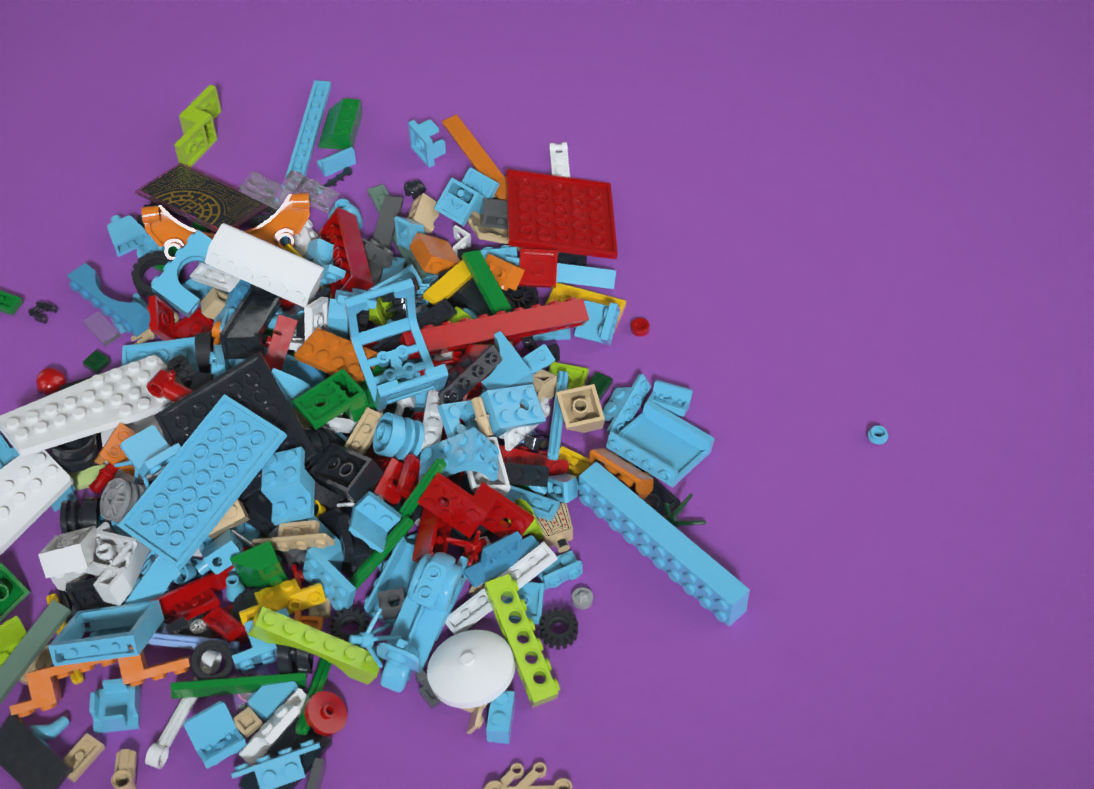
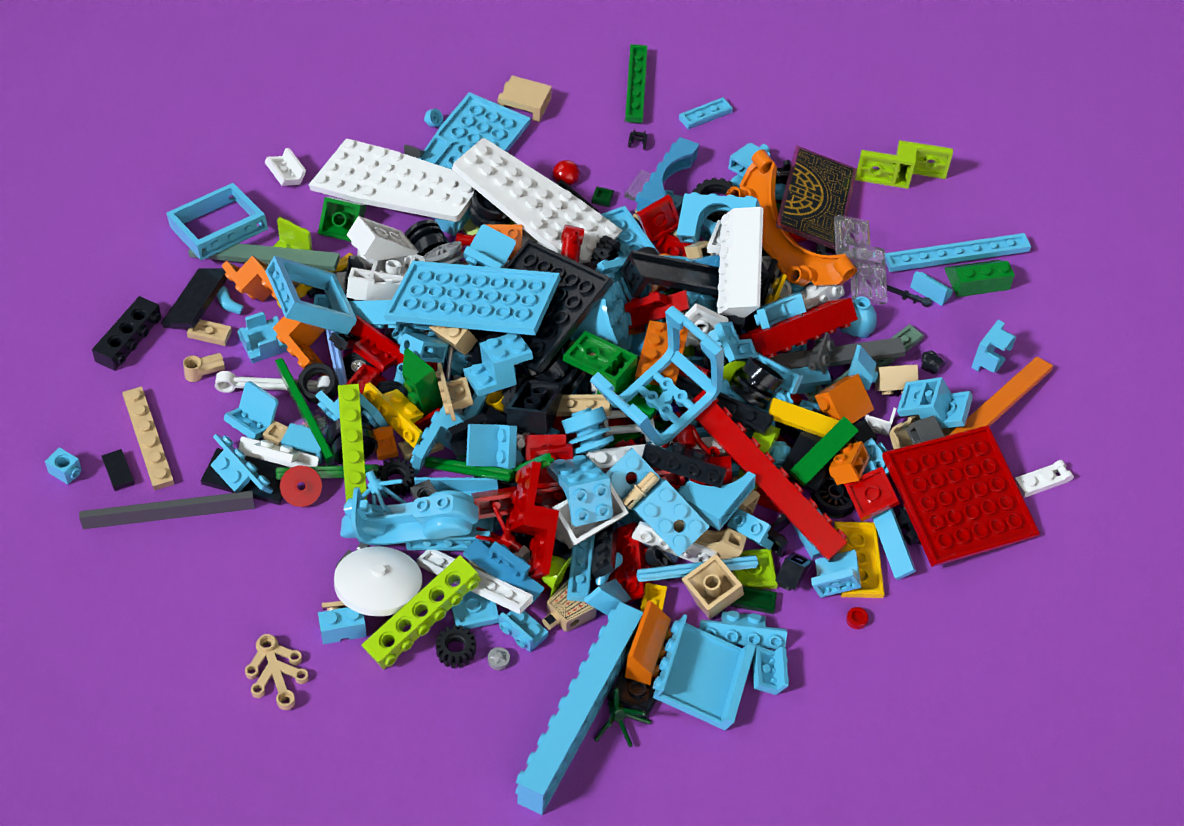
camera: 65 degrees right, 0 degrees up
(41, 251) = (705, 113): none -> medium azure tile
(582, 351) = (793, 571): none -> black slope

